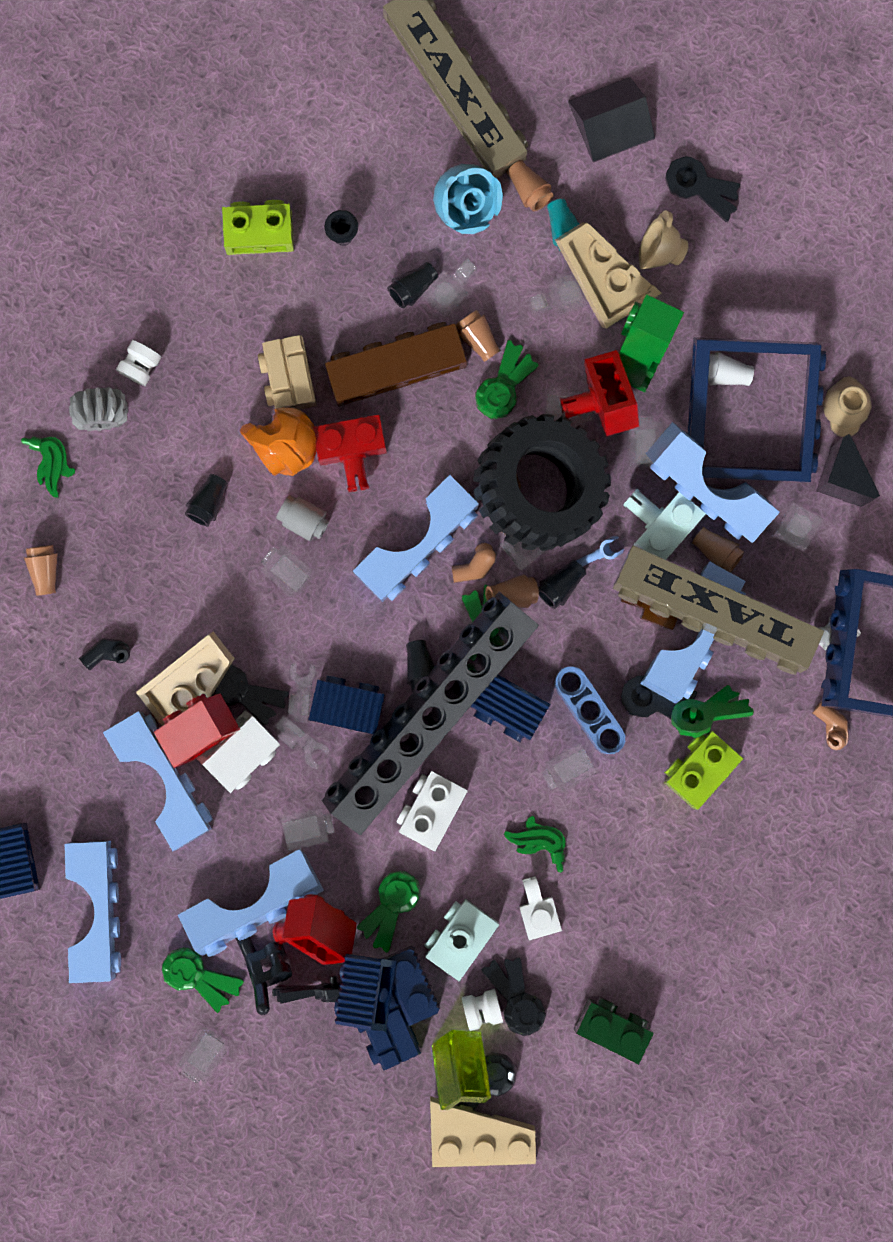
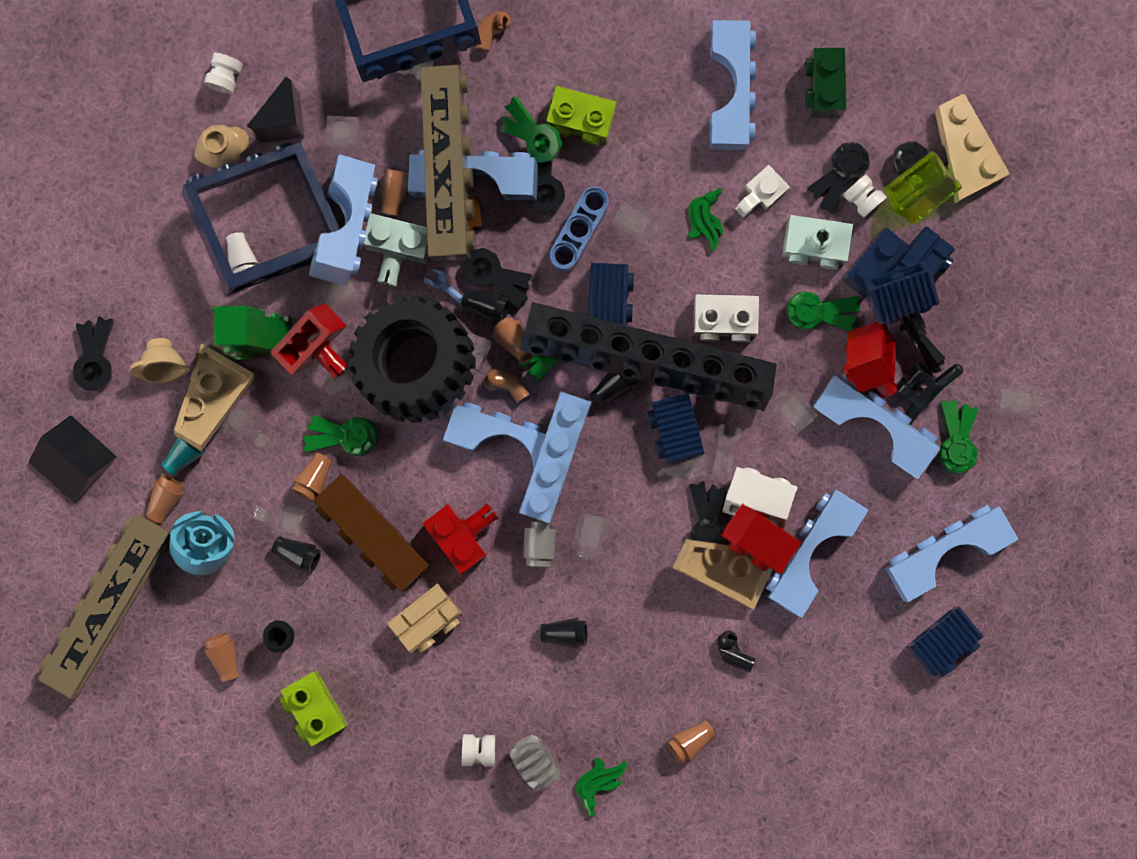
camera: 115 degrees left, 0 degrees up
(285, 443) = (485, 588): orange helmet -> none
(353, 168) = (222, 655): none -> nougat cone
(378, 573) = (555, 457): none -> light blue arch
(596, 601) = (485, 270): none -> black piece
(697, 954) = (731, 47): none -> light blue arch

